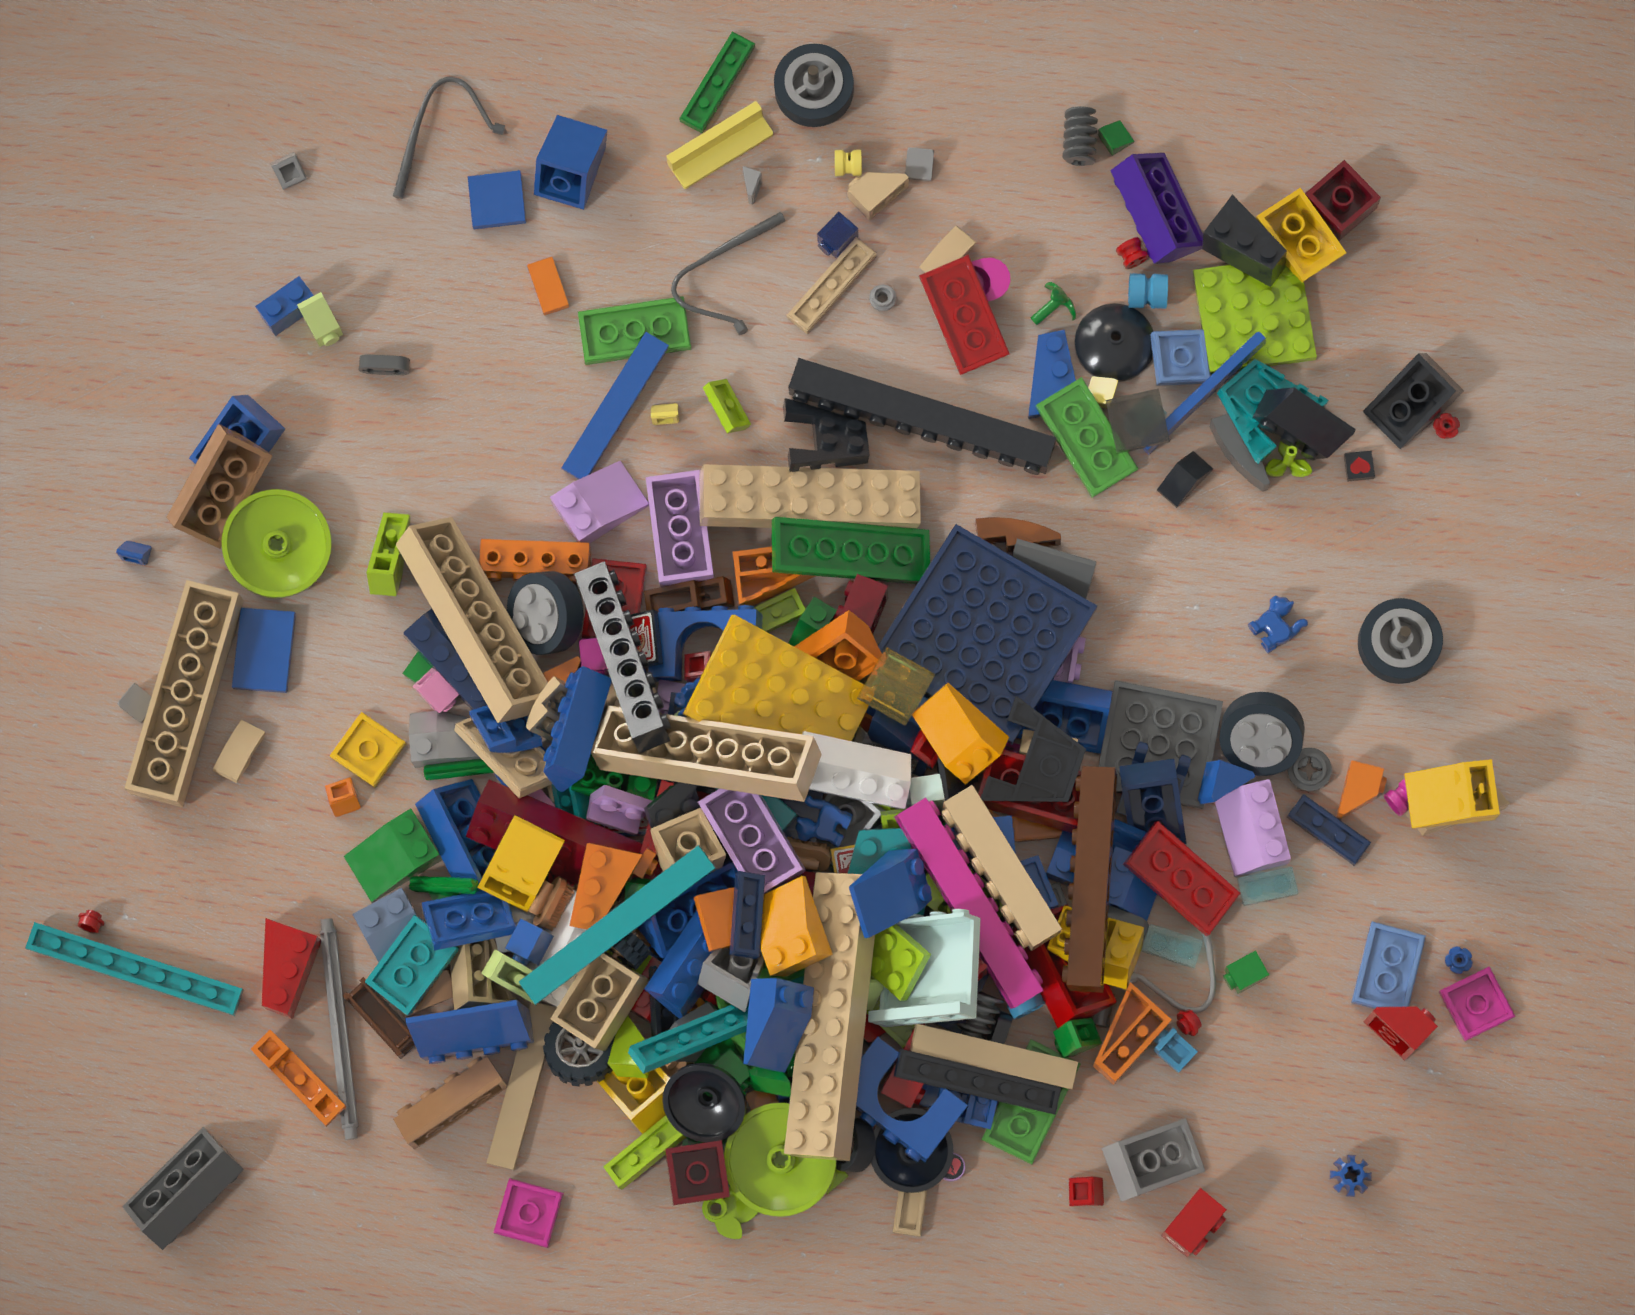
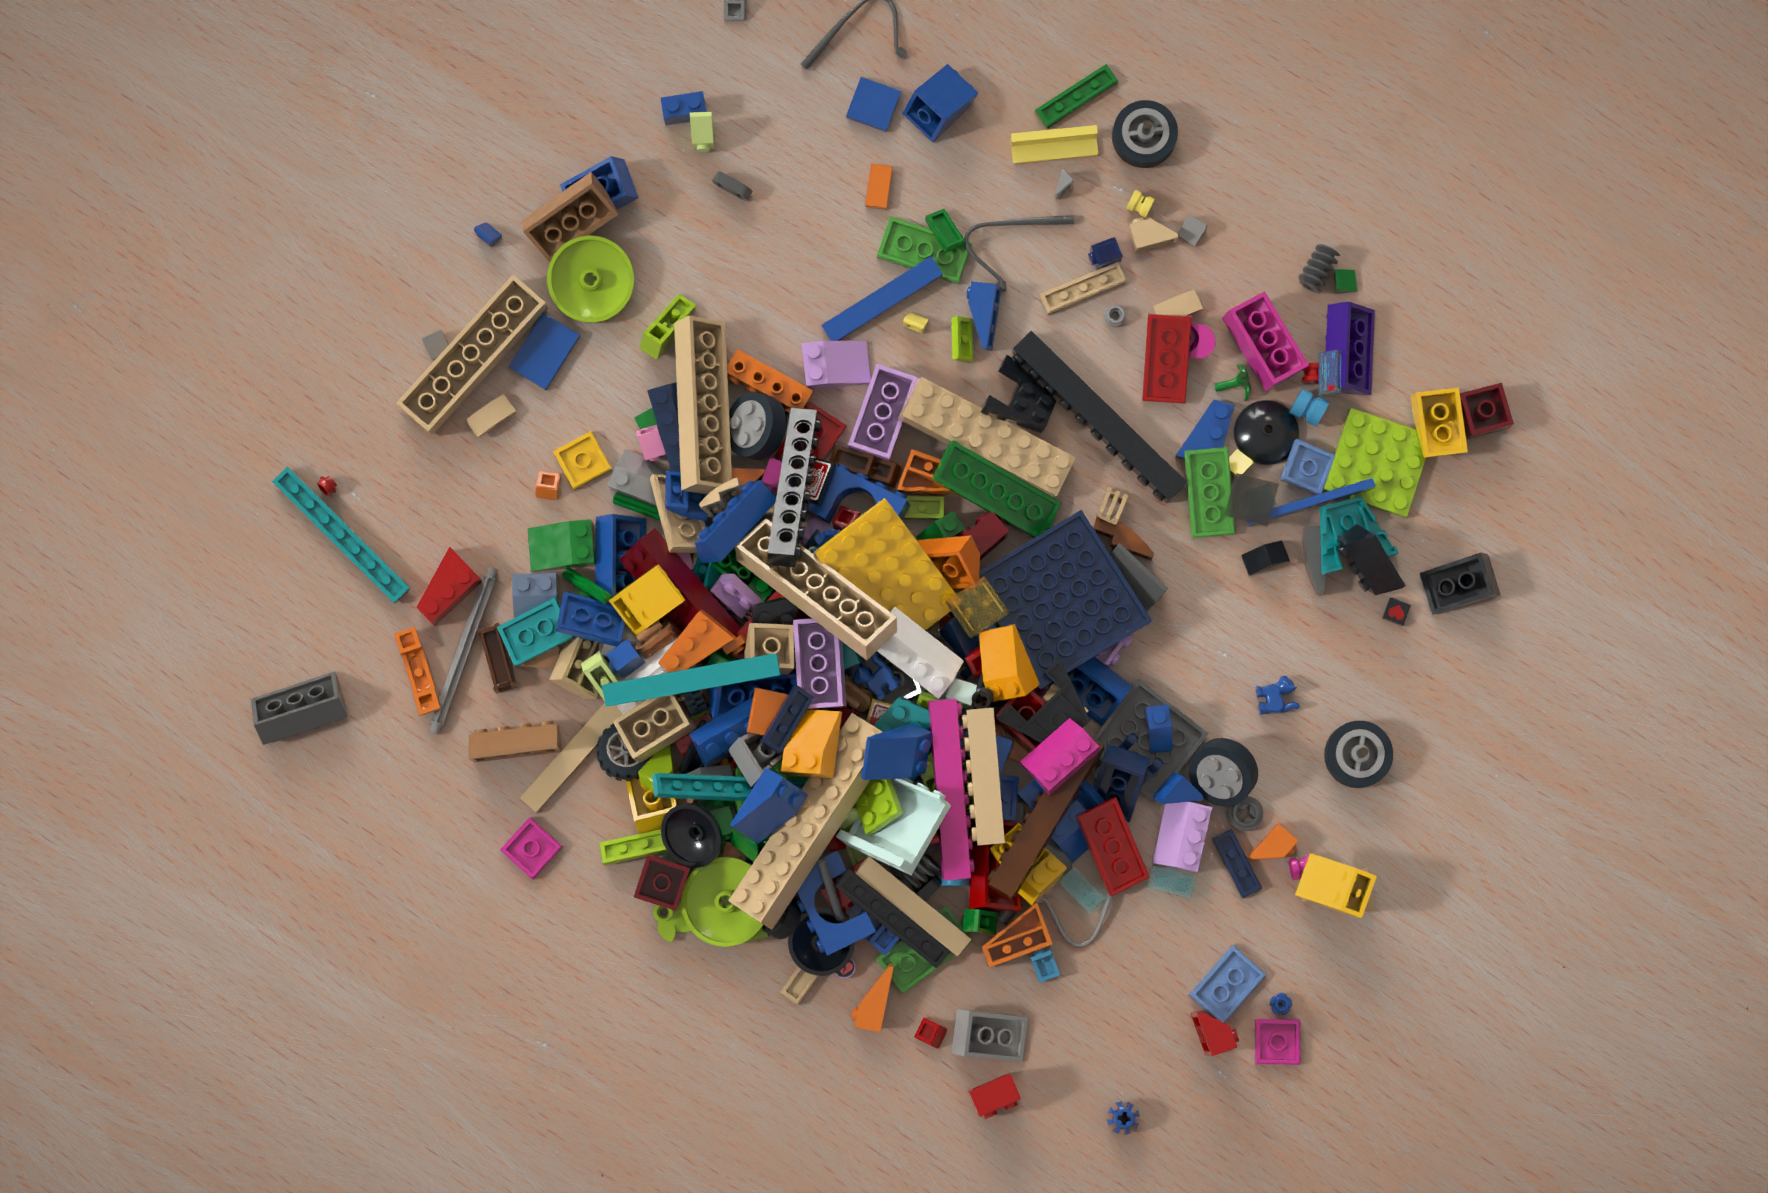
camera: 20 degrees right, 5 degrees up
(471, 1031) = (554, 701): blue slope -> none
(646, 297) = (945, 230): none -> green tile
(733, 358) = (984, 306): none -> blue slope
(892, 1083) = (830, 888): none -> dark grey bar
(951, 776) = (981, 704): none -> black bush
(987, 494) = (1116, 497): none -> tan tile
(1005, 1191) = (872, 1006): none -> orange slope
(1062, 243) = (1265, 341): none -> dark pink slope
(1073, 803) = (1060, 756): none -> dark pink slope
(1151, 241) = (1330, 373): none -> clear light blue tile
(1165, 721) = (1159, 728): none -> blue slope
(1188, 1022) = (1064, 950): red plate -> none
(1244, 243) = (1397, 407): black wedge -> none
(1245, 972) = (1123, 936): green brick -> none
(1298, 467) = (1351, 590): lime plant -> none
(1446, 433) = (1476, 608): red plate -> none

